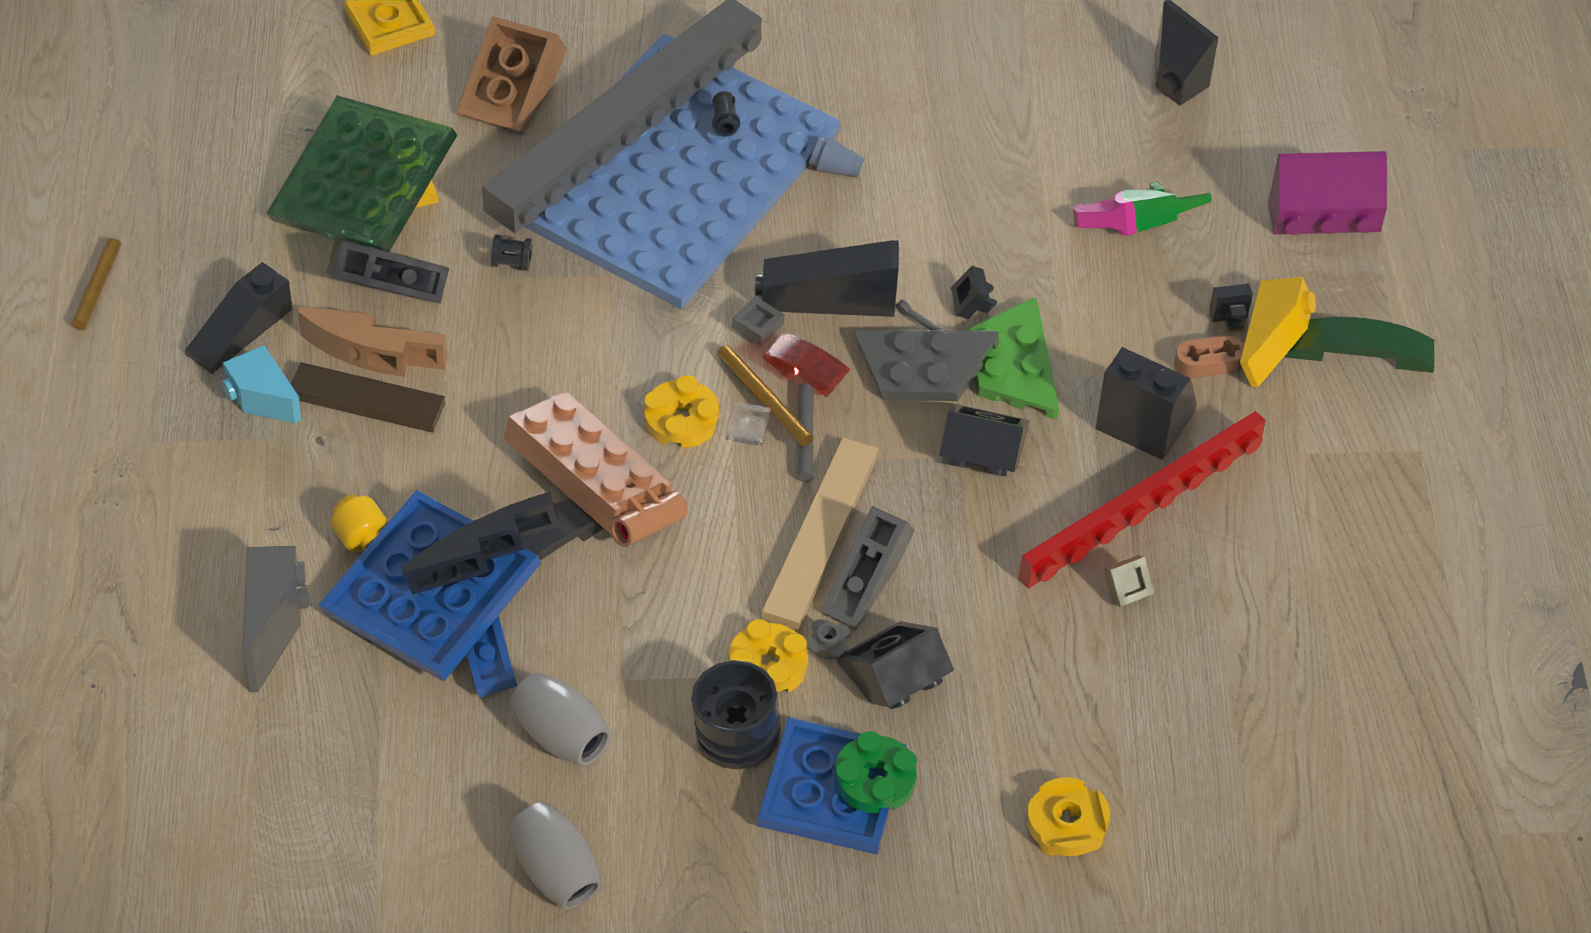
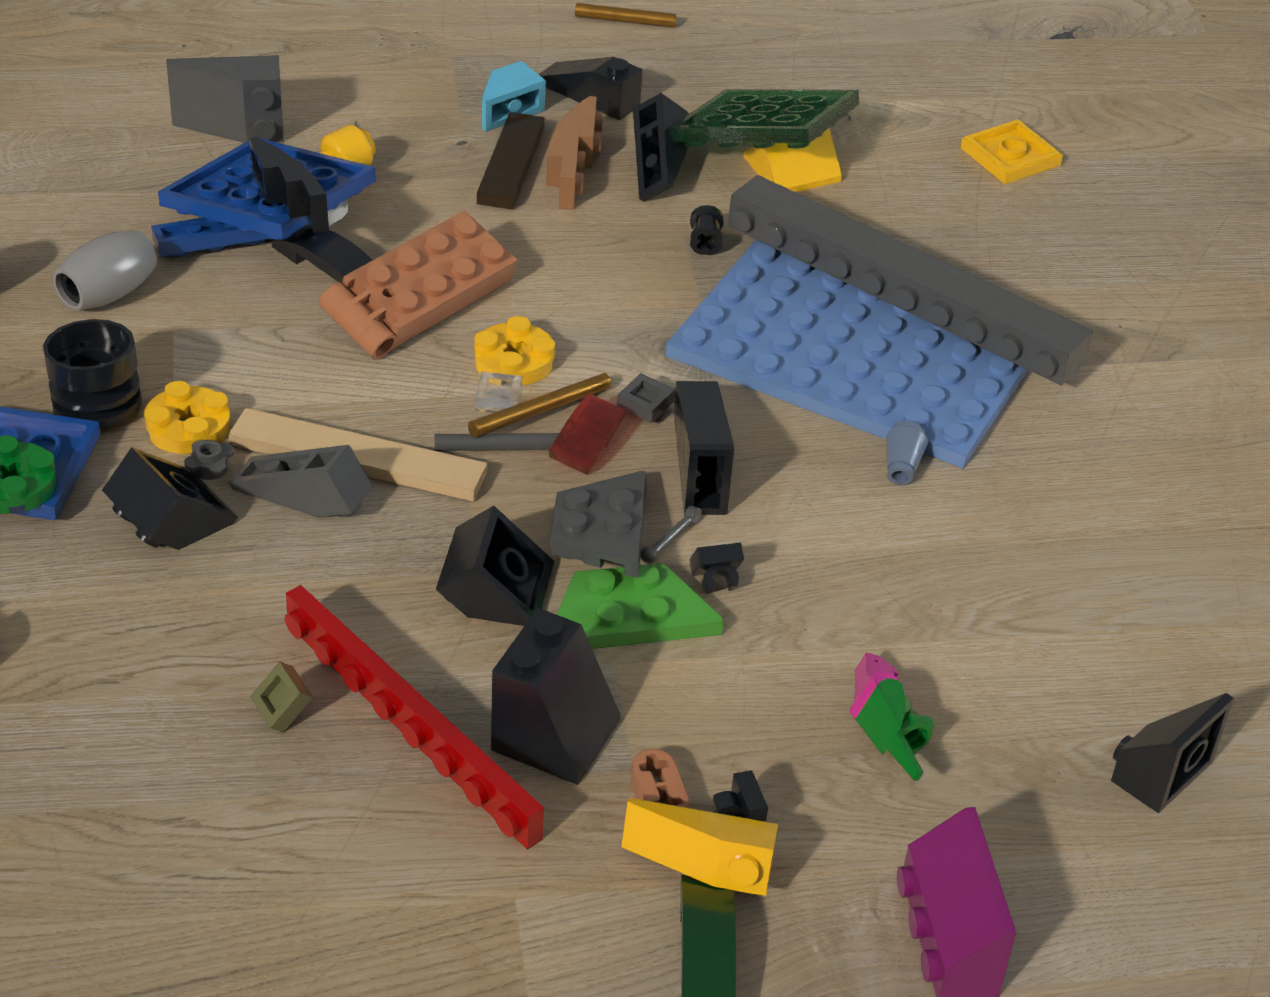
camera: 85 degrees right, 10 degrees down
(511, 74) = (954, 219): medium nougat slope -> none
(726, 120) = (927, 350): black pin -> none

